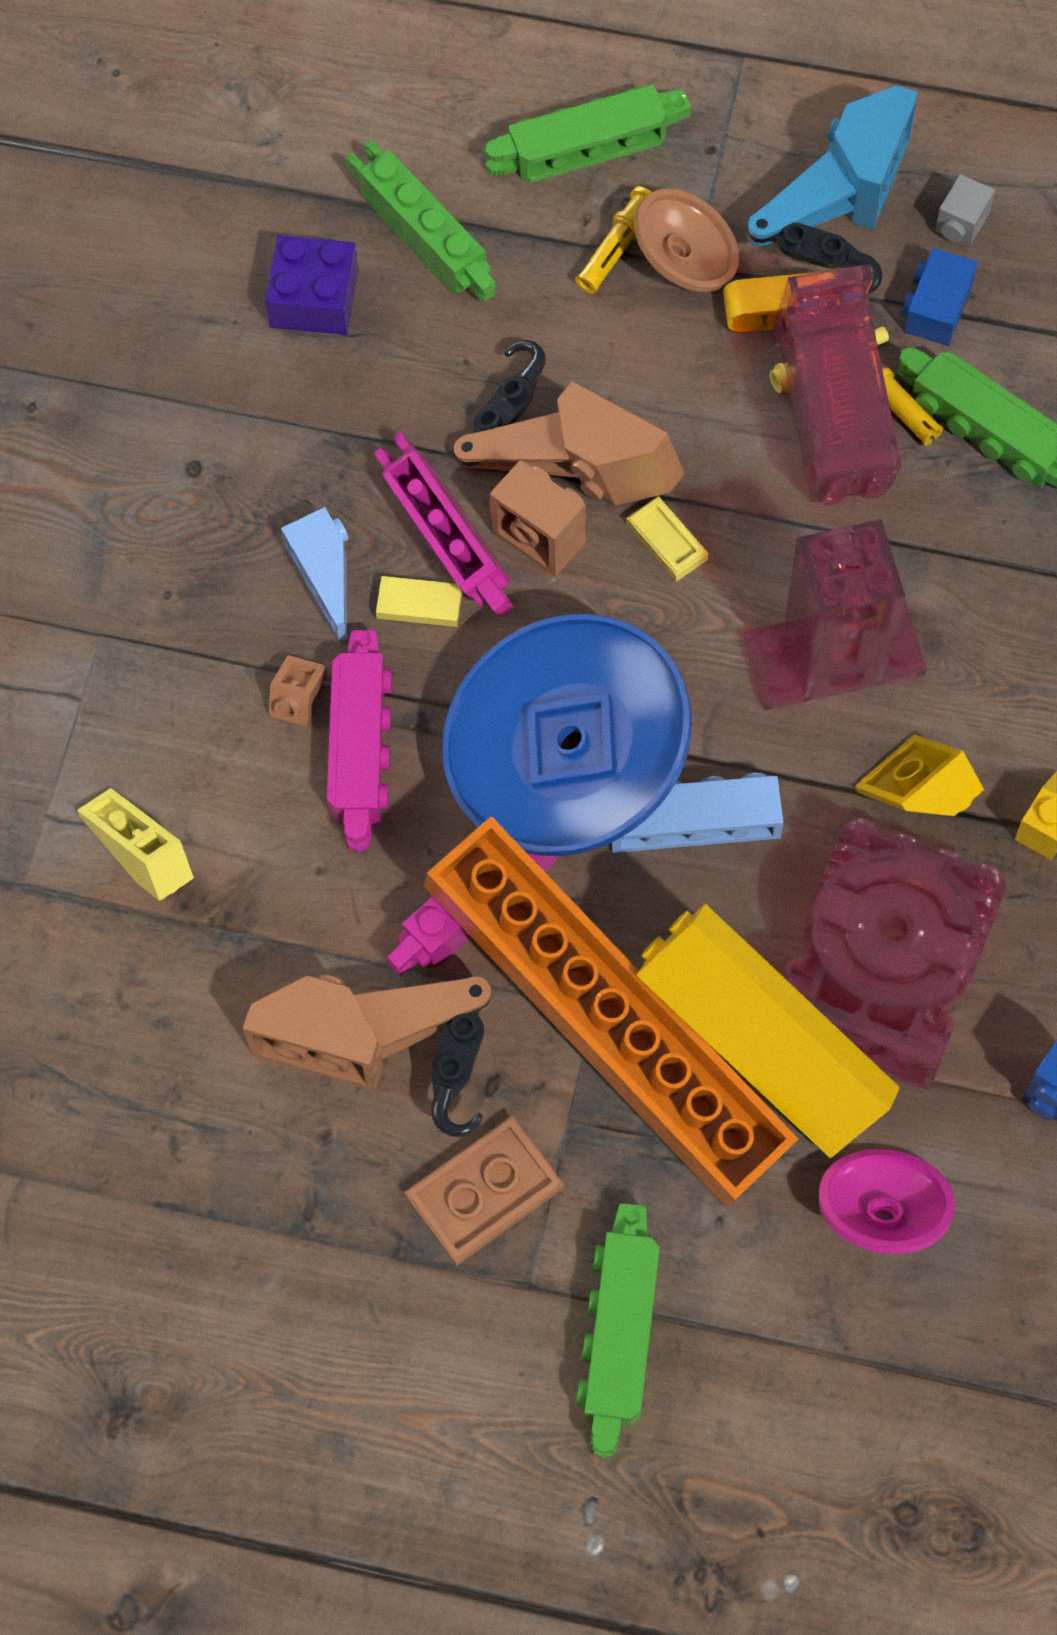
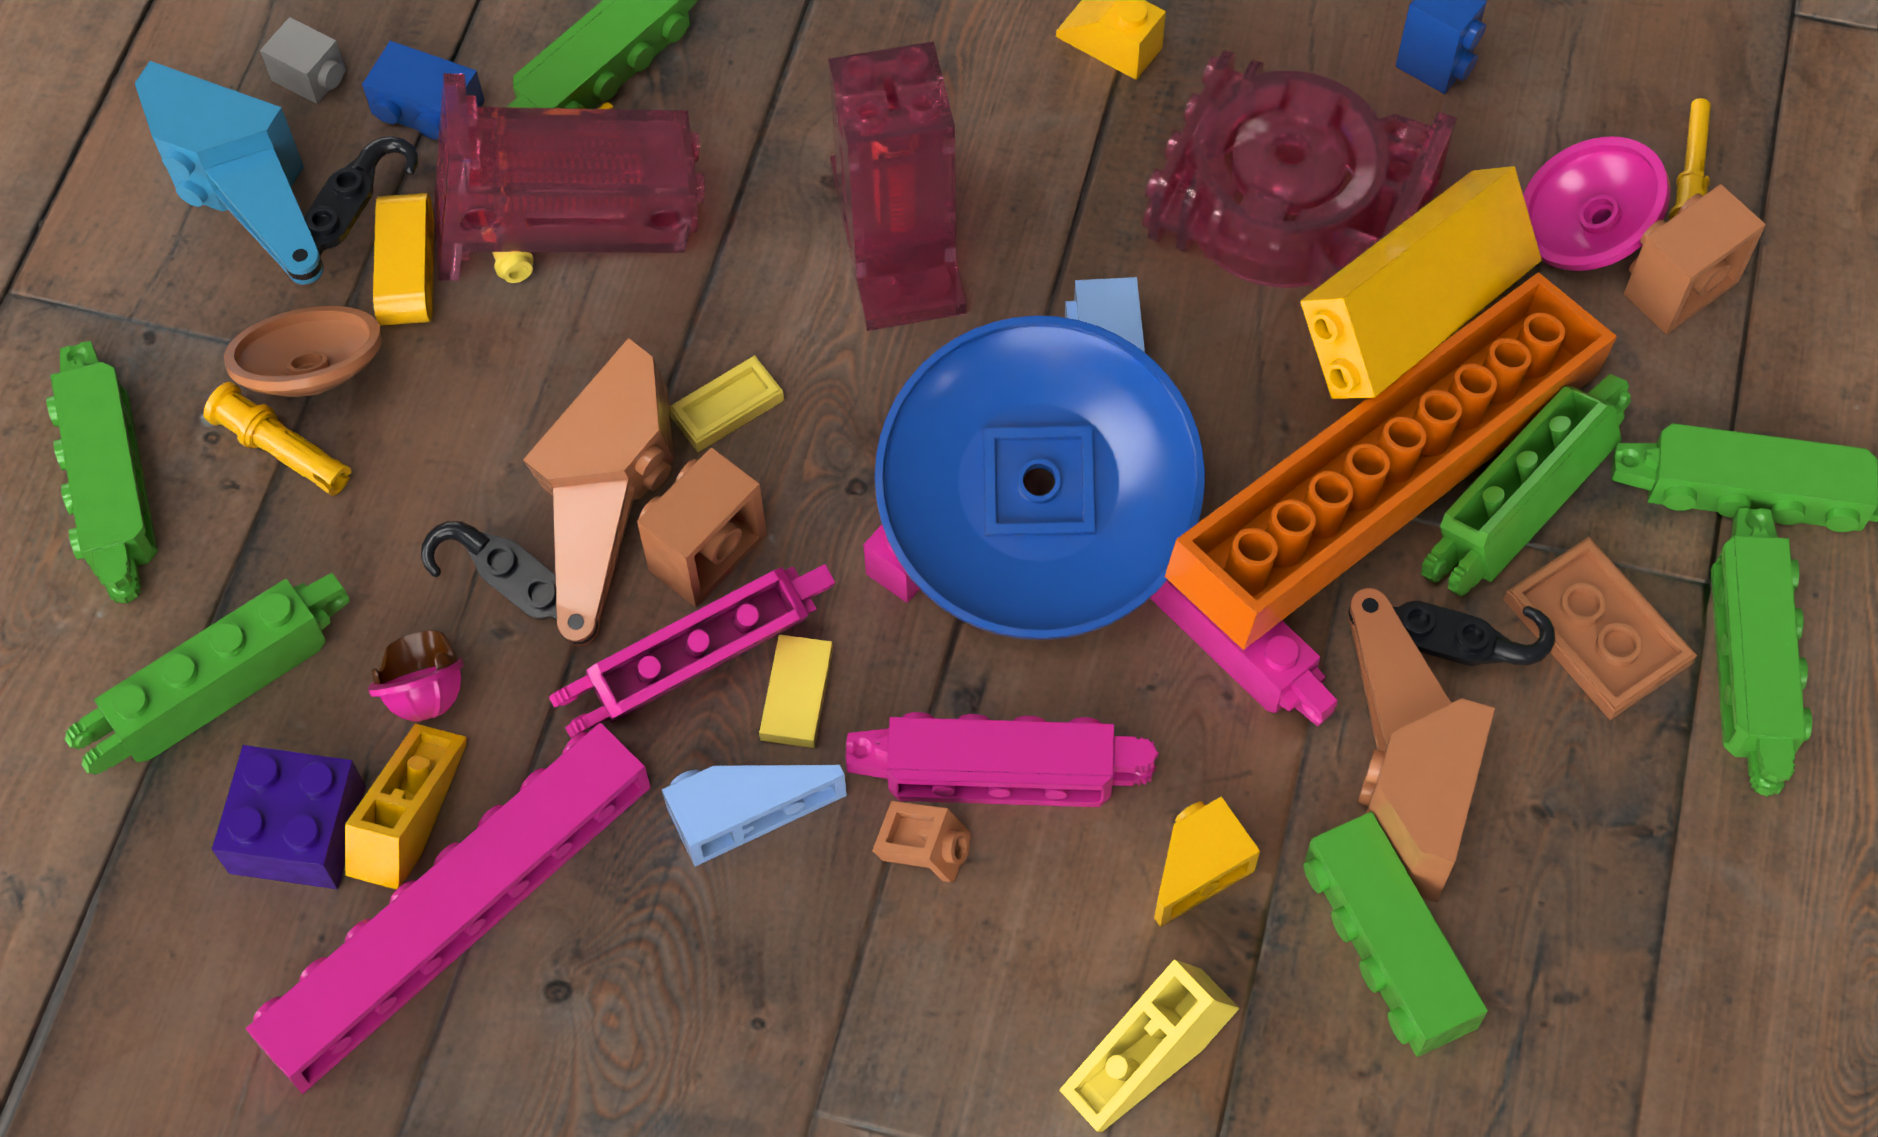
camera: 90 degrees left, 5 degrees down
(206, 1015) = (1393, 934): none -> bright green brick
(251, 393) = (448, 907): none -> dark pink brick
(279, 877) = (1203, 858): none -> yellow slope
(323, 353) = (401, 807): none -> yellow slope
(416, 348) = (418, 676): none -> piece
(461, 1309) = (1759, 650): none -> bright green hinge
(605, 1132) = (1527, 484): none -> bright green hinge
(830, 1278) = (1692, 257): none -> nougat brick
(923, 779) = (1071, 150): yellow slope -> none
(928, 1303) = (1692, 178): none -> yellow pin

